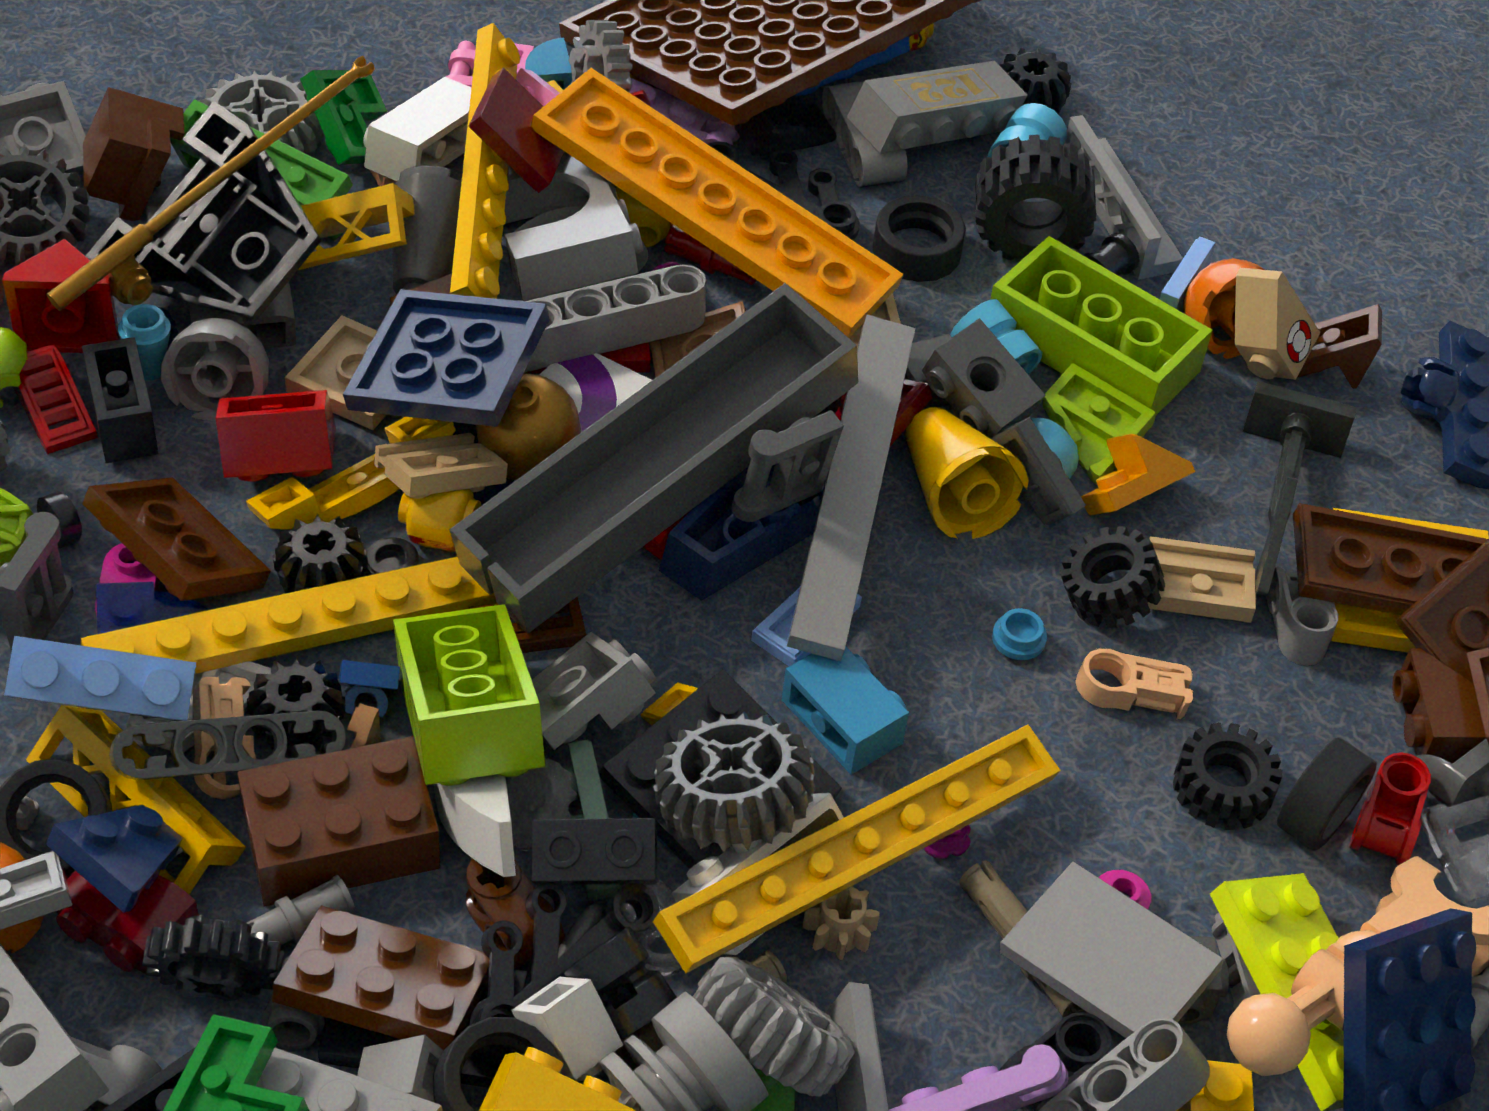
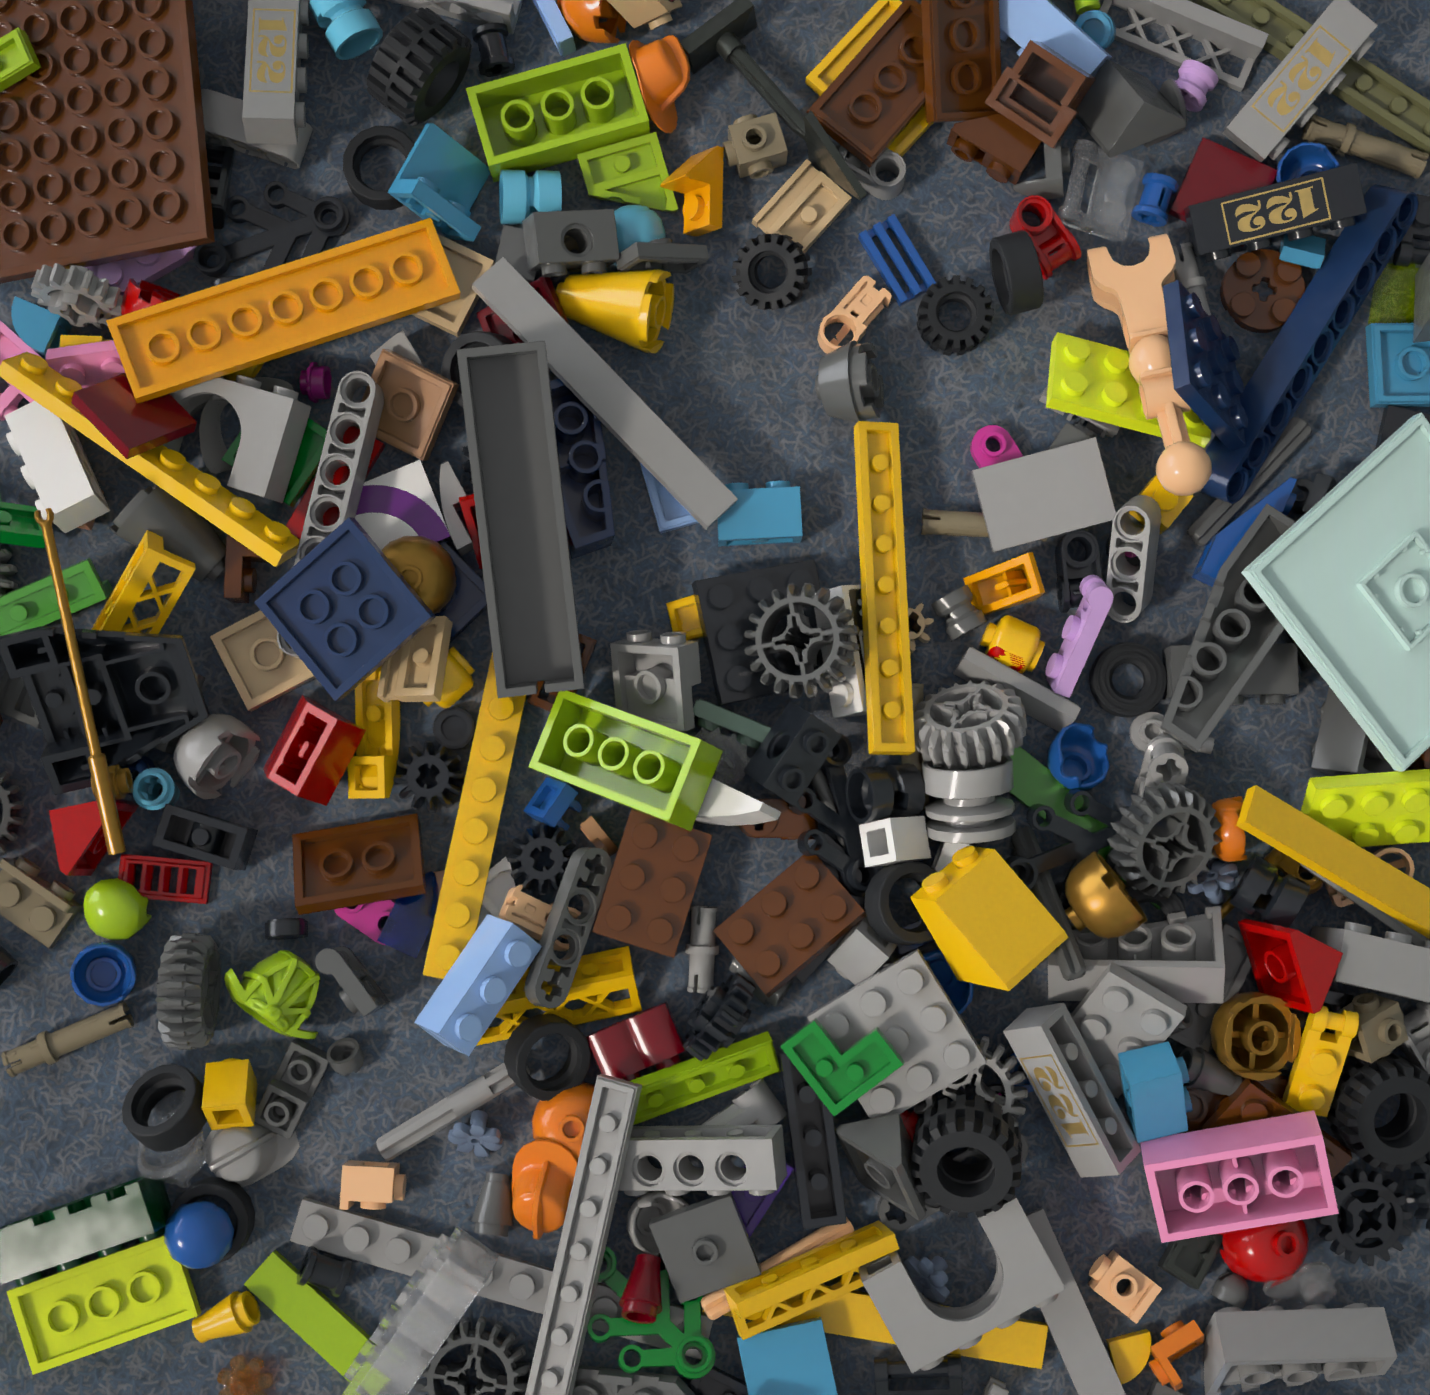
camera: 55 degrees left, 35 degrees up
(106, 986) = (699, 1080): none -> lime tile
(117, 851) = (616, 1036): dark blue wing -> none
(801, 467) = (588, 435): dark grey plate -> none
(899, 969) = (959, 613): none -> dark grey wheel
(912, 1046) = (1013, 643): none -> yellow head
(943, 271) = (441, 183): none -> dark azure bracket
(976, 998) = (1006, 584): none -> light orange slope
(1019, 634) = (769, 361): dark azure plate -> none
(1066, 703) = (850, 383): none -> dark grey cone
(1206, 389) = (662, 77): none -> orange piece
(1224, 499) = (755, 145): none -> dark tan brick
(1246, 665) = (880, 230): none -> blue tile

